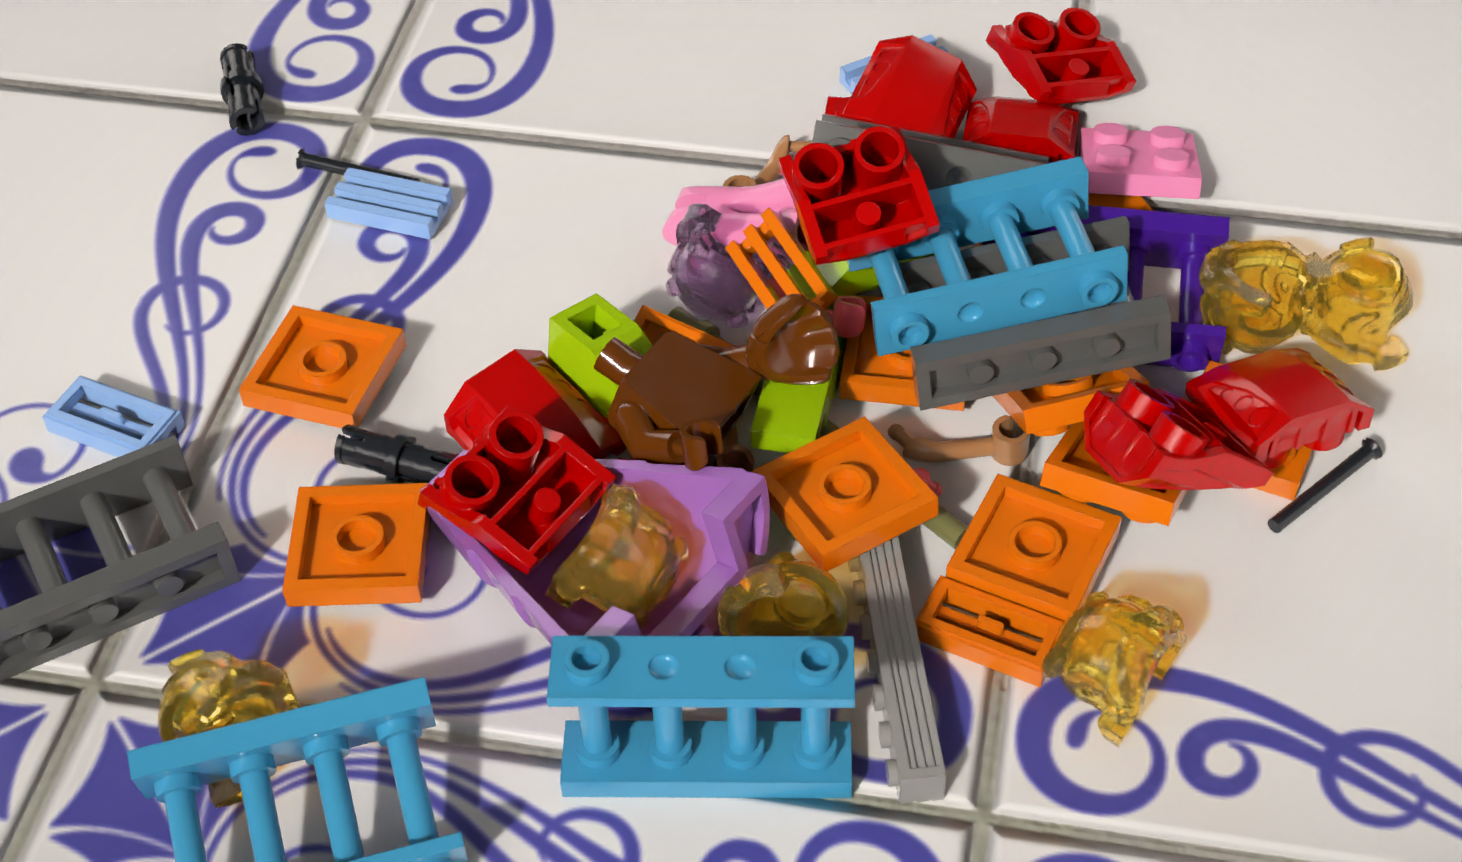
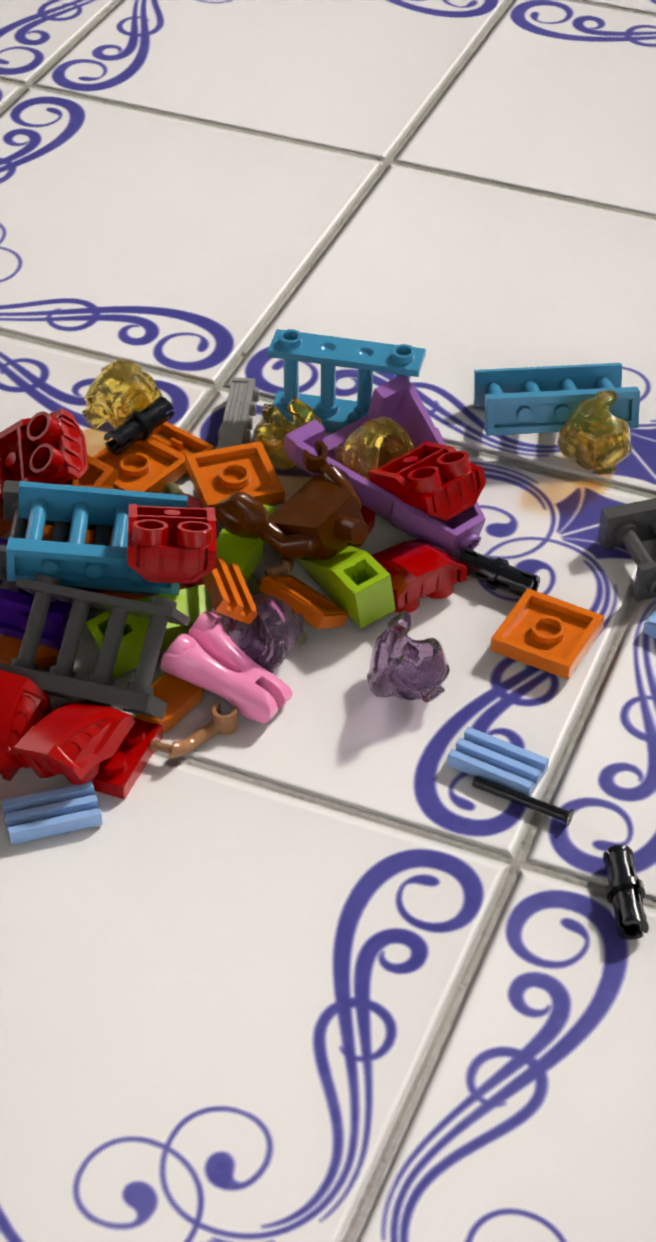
camera: 170 degrees left, 5 degrees down
(357, 546) = (524, 527): orange plate -> none
(512, 257) = (405, 665): none -> clear purple helmet
(1037, 607) = (139, 425): none -> black pin

